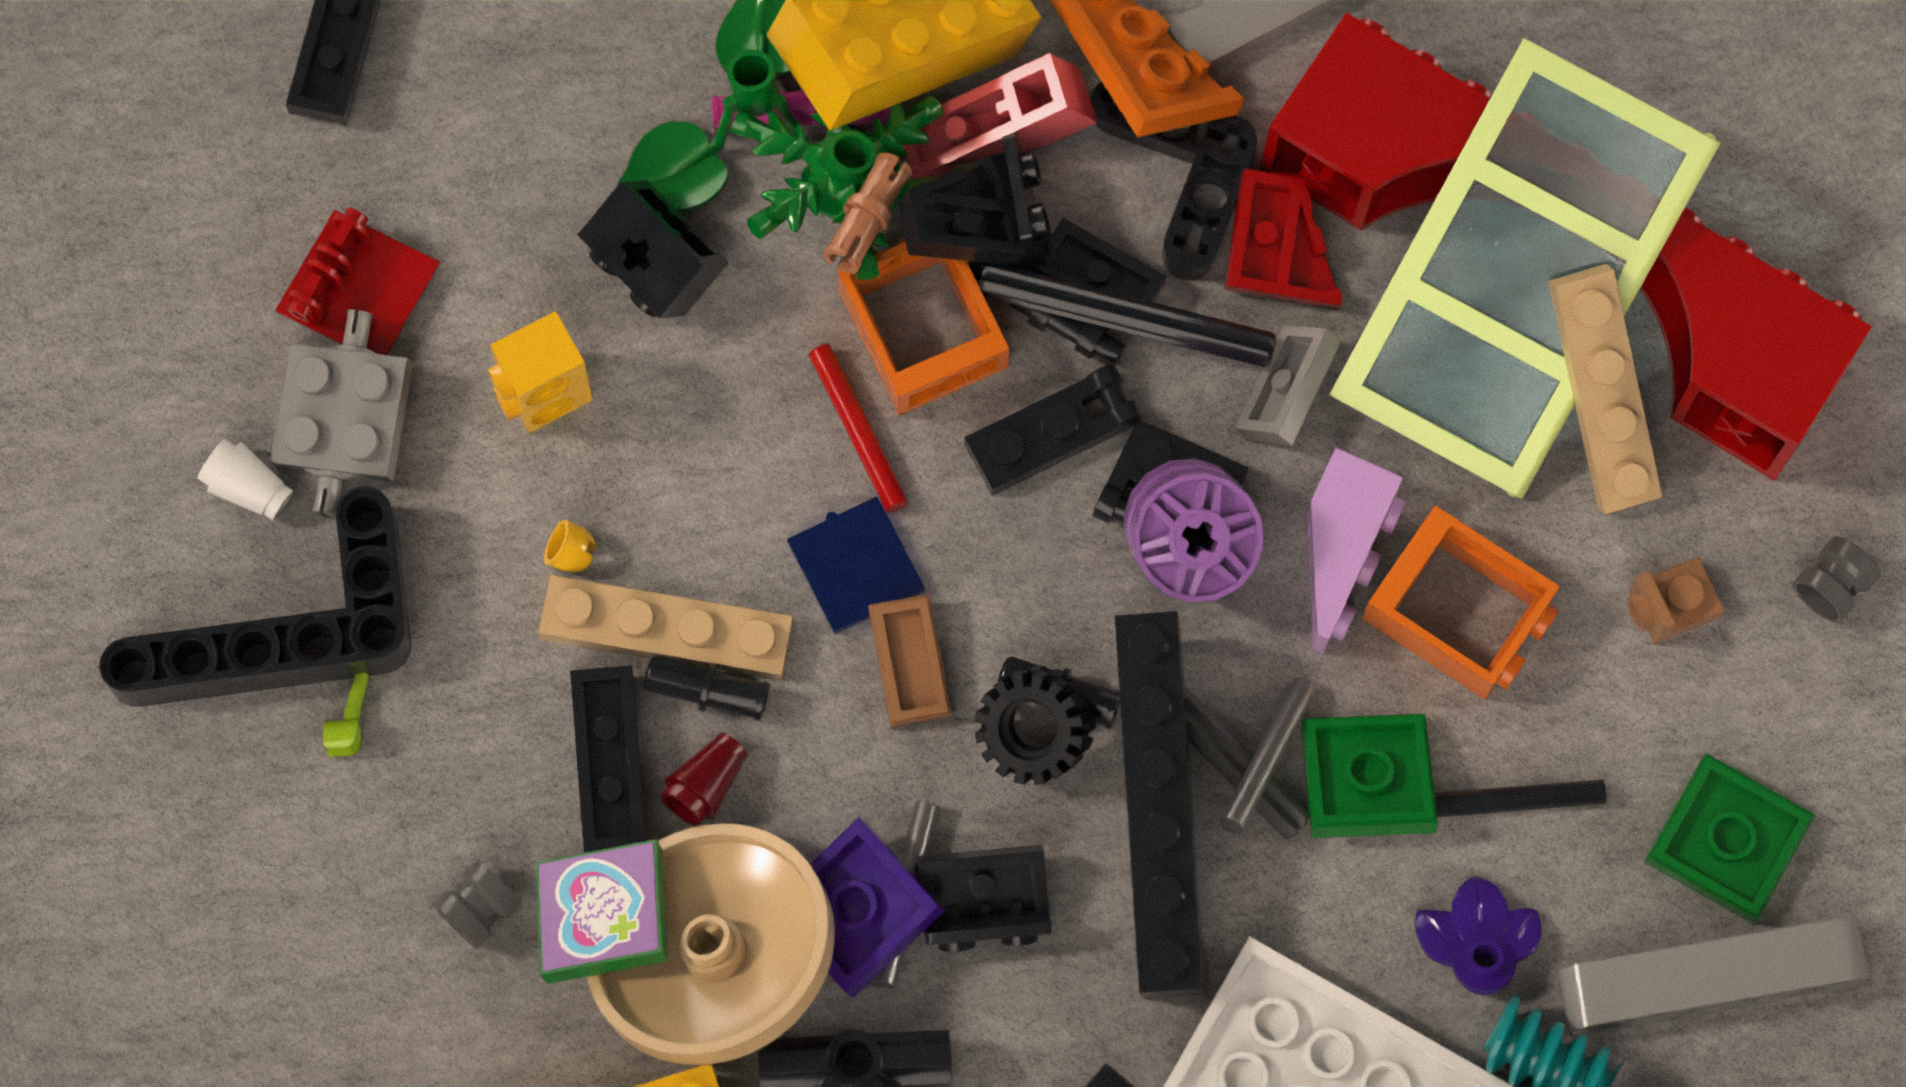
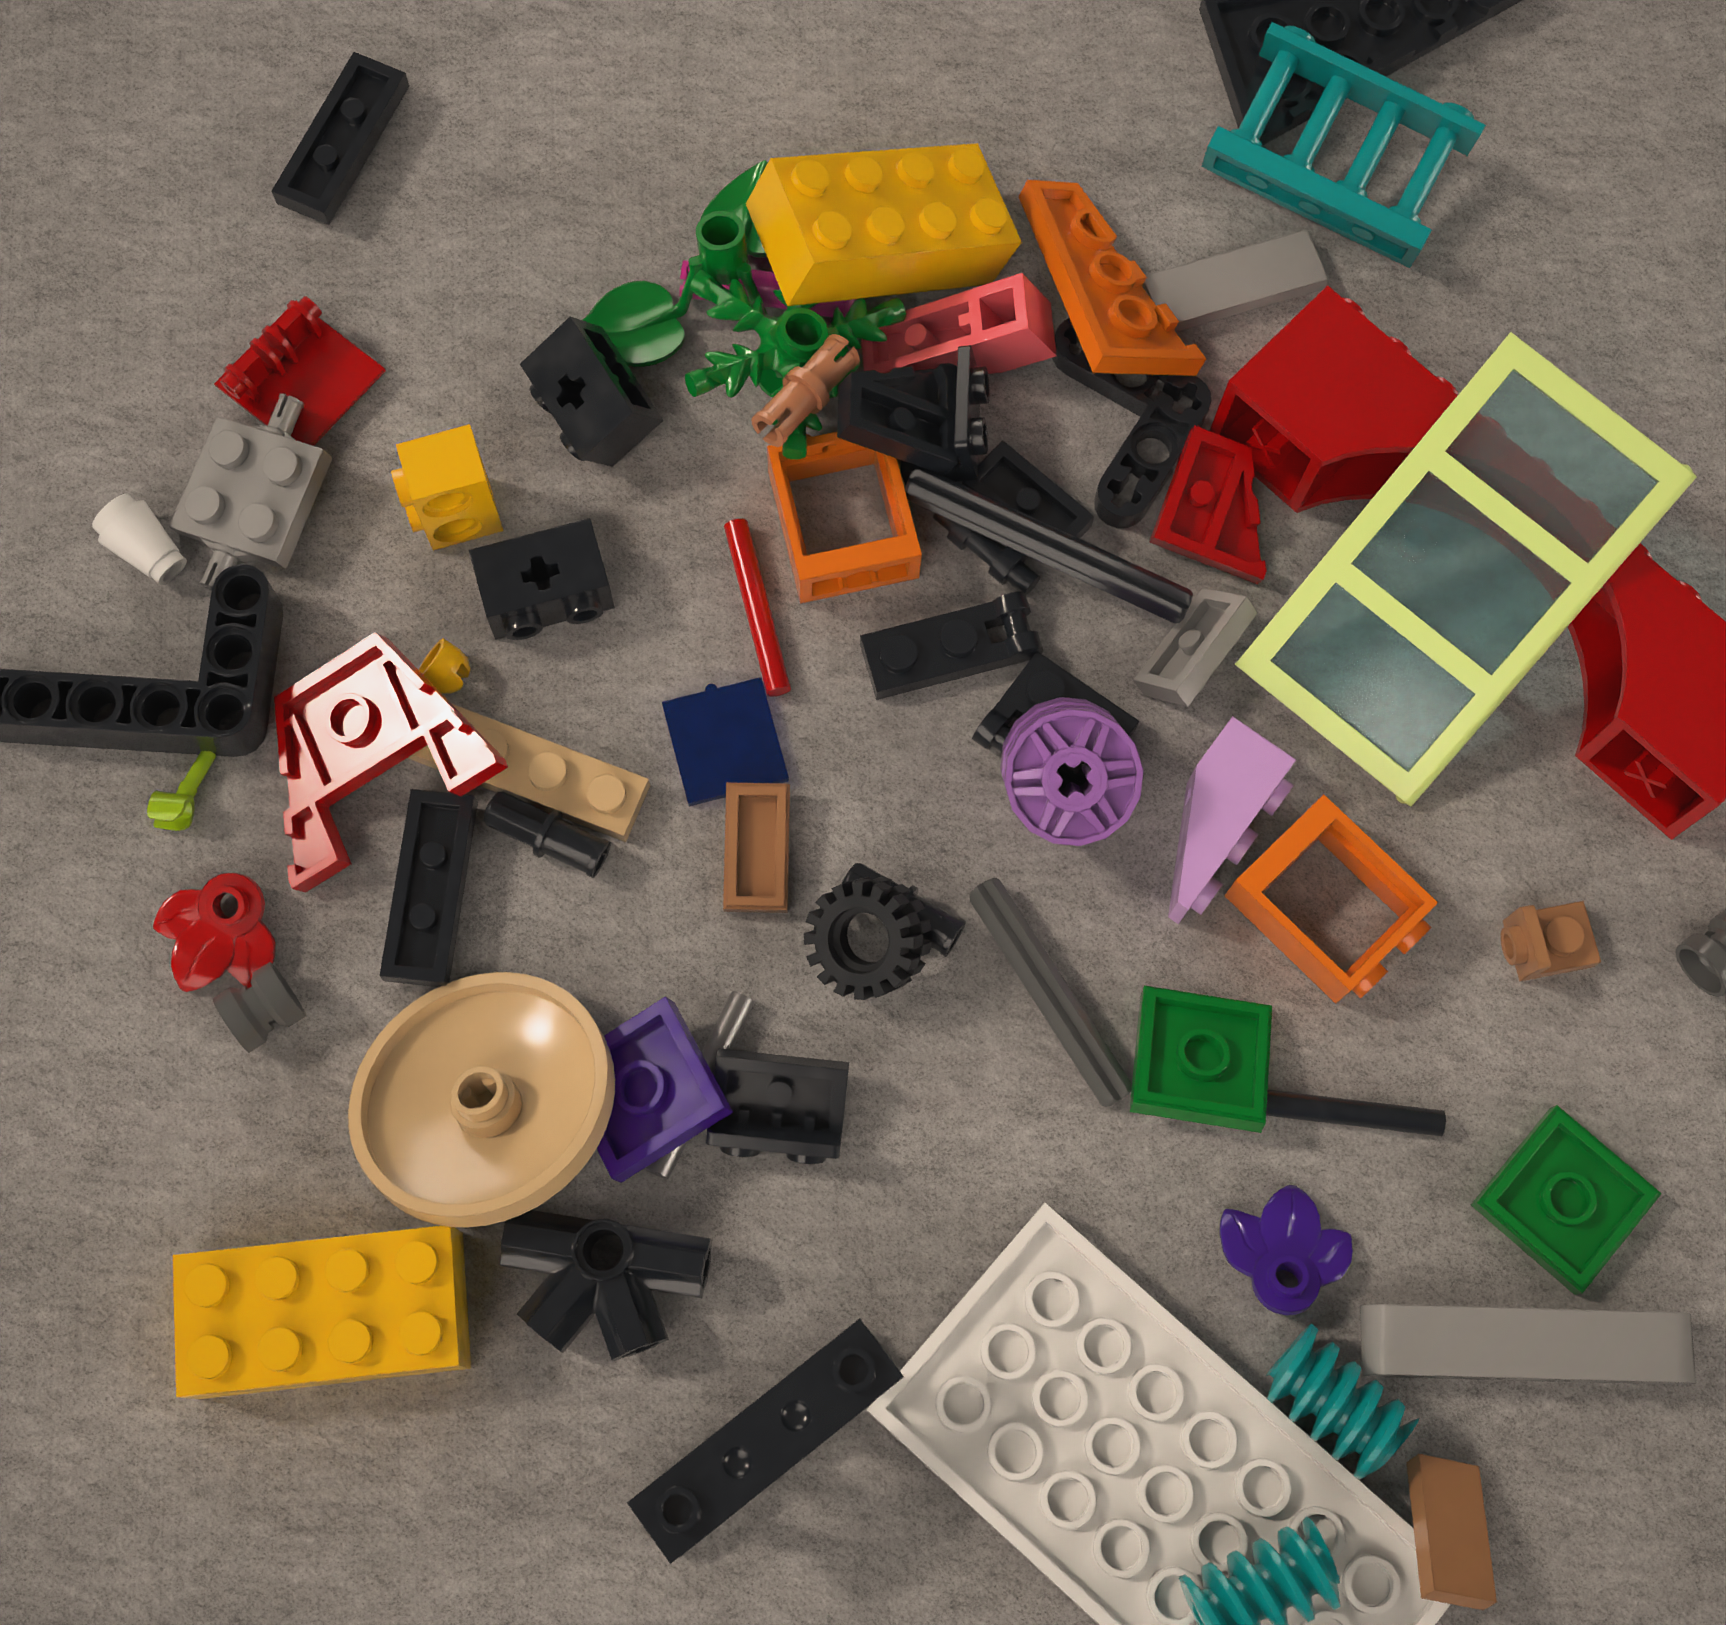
camera: 10 degrees right, 0 degrees up
(415, 853) = (208, 939): none -> red plate
(504, 618) = (352, 726): none -> wing
(601, 911) = (380, 1041): tile -> none
(669, 421) = (513, 567): none -> black brick
(703, 781) = (521, 926): dark red cone -> none
(1160, 805) = (978, 1047): black brick -> none
(1268, 755) = (1100, 1018): flat silver bar -> none
(1605, 388) = (1522, 708): tan plate -> none

